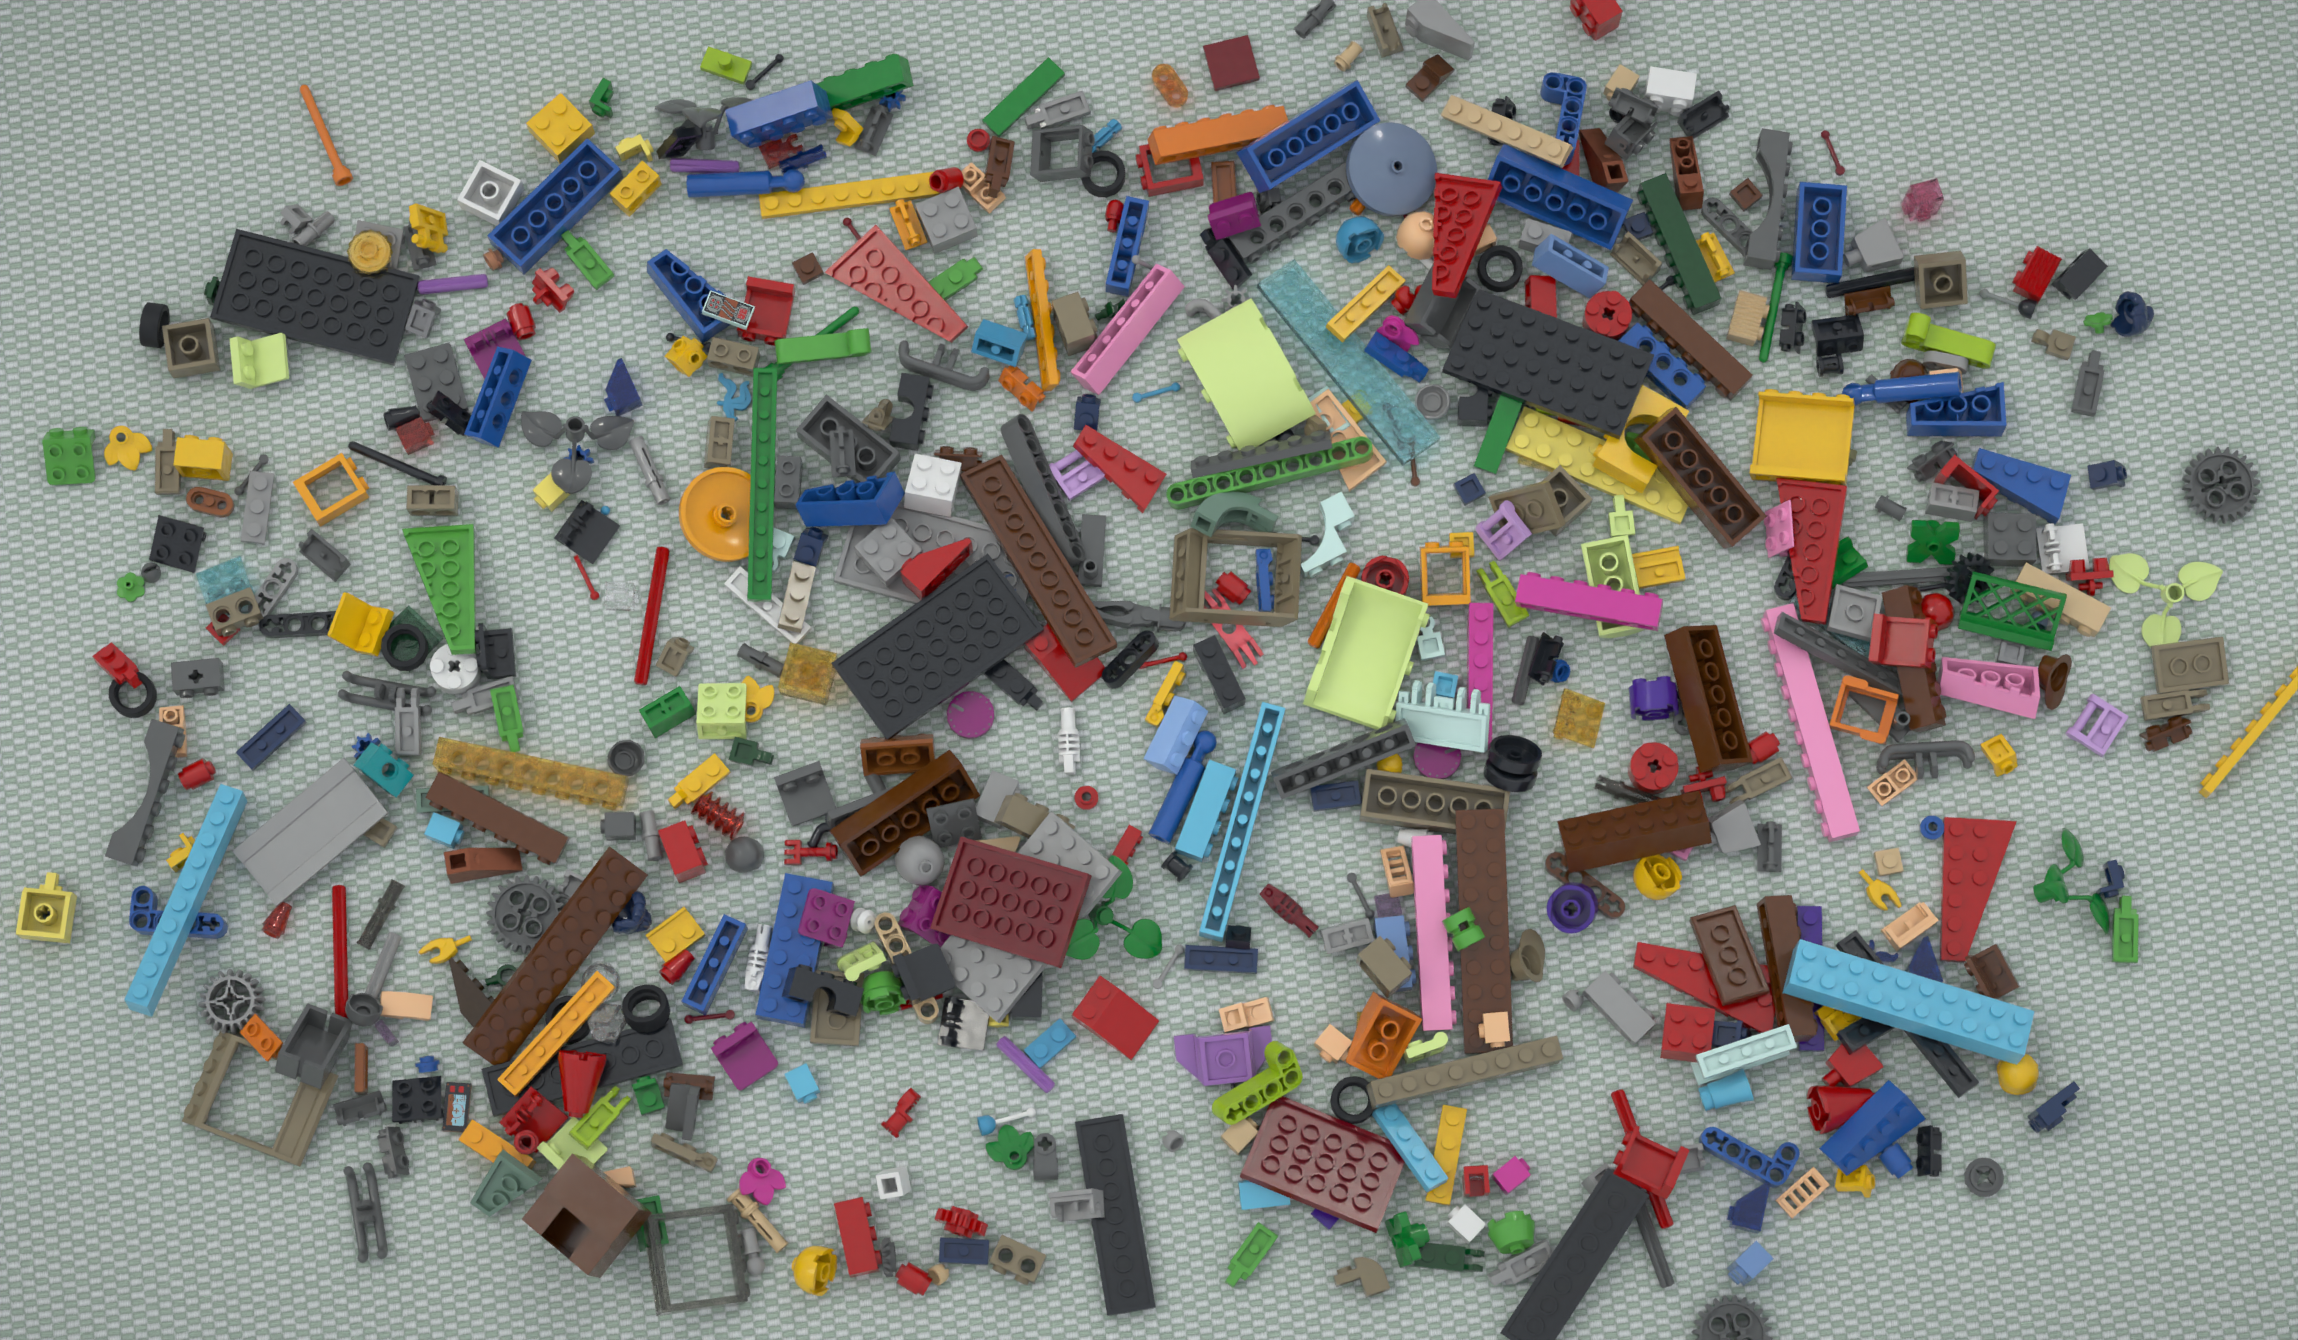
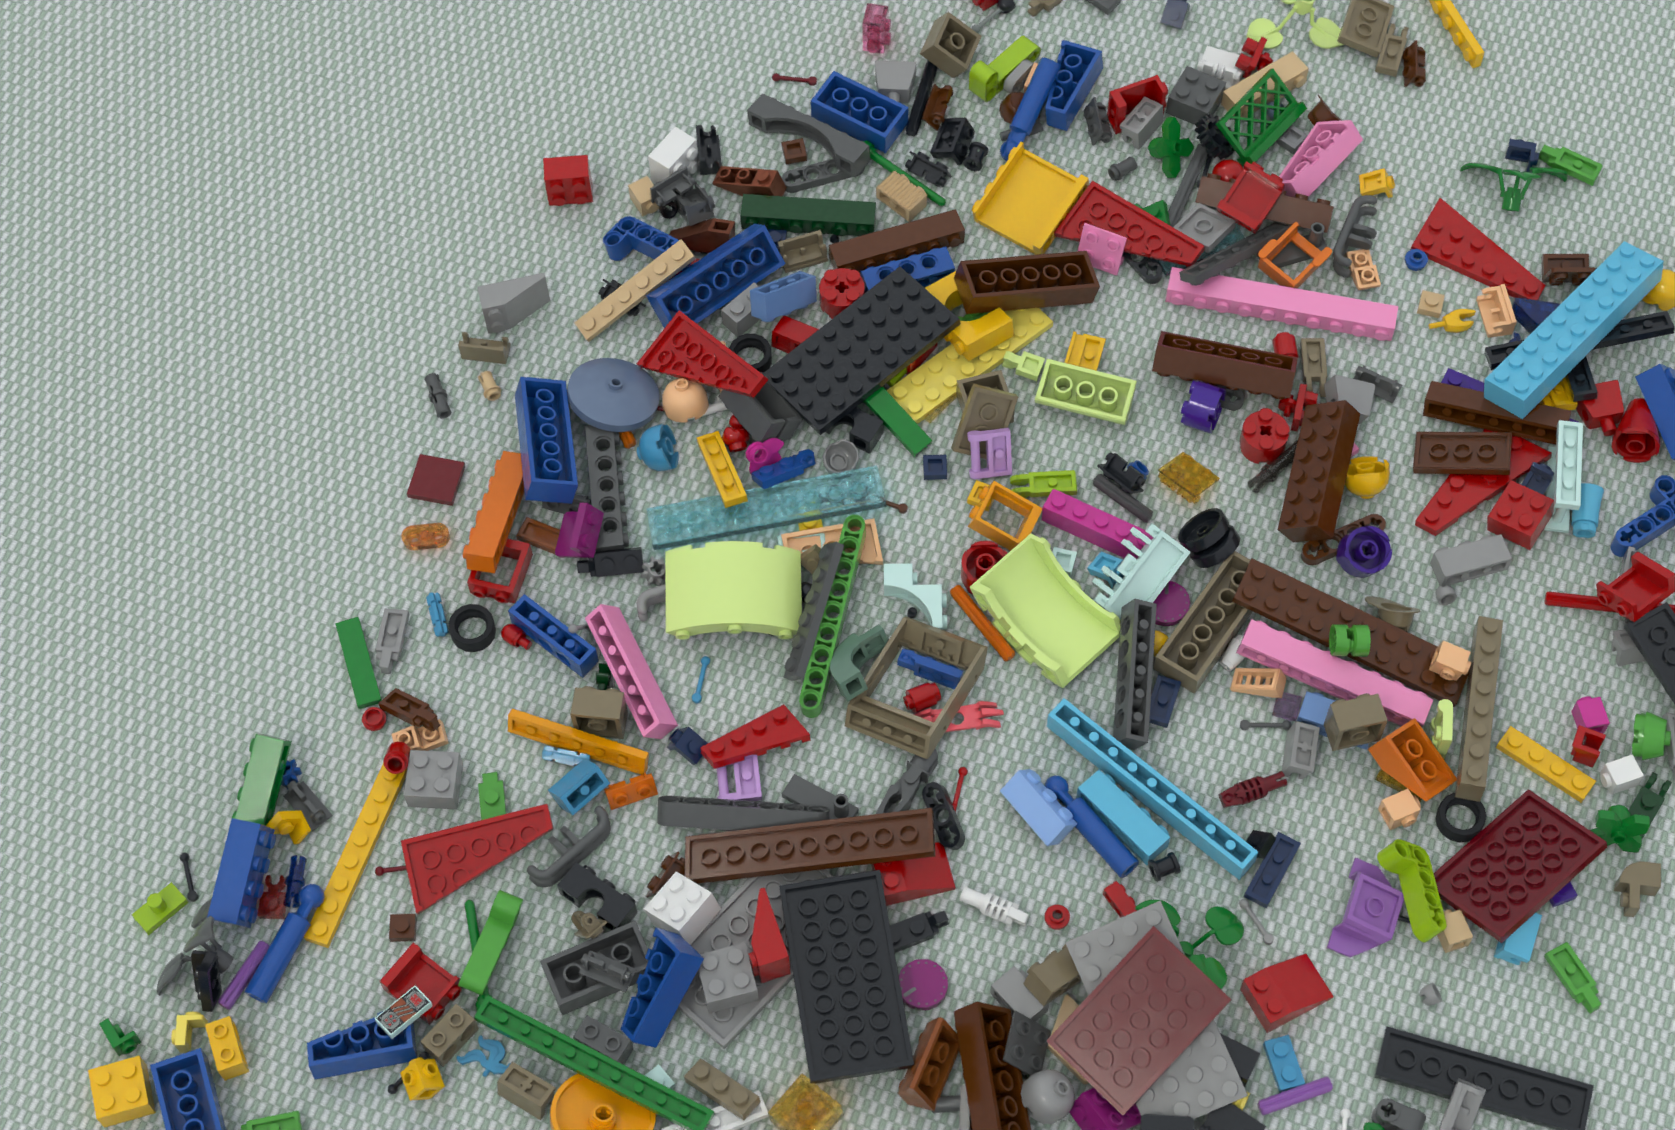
camera: 60 degrees left, 15 degrees down
(810, 546) = (677, 1053): dark blue bracket -> none
(907, 224) = (416, 817): light orange hinge -> none
(1042, 152) = (417, 636): dark grey window -> none
(1165, 694) = (993, 800): yellow hinge -> none
(1222, 679) = (1012, 742): black arch -> none
(1246, 1015) = (1335, 873): light nougat slope -> none
(1410, 1147) = (1531, 786): medium azure plate -> none
(1430, 77) = (548, 335): reddish brown slope -> none
(1589, 602) = (1093, 412): dark pink brick -> none
(1714, 257) = (835, 194): yellow hinge -> none
(2024, 483) = (1163, 57): blue wedge -> none
(2103, 730) = (1389, 103): lavender plate -> none

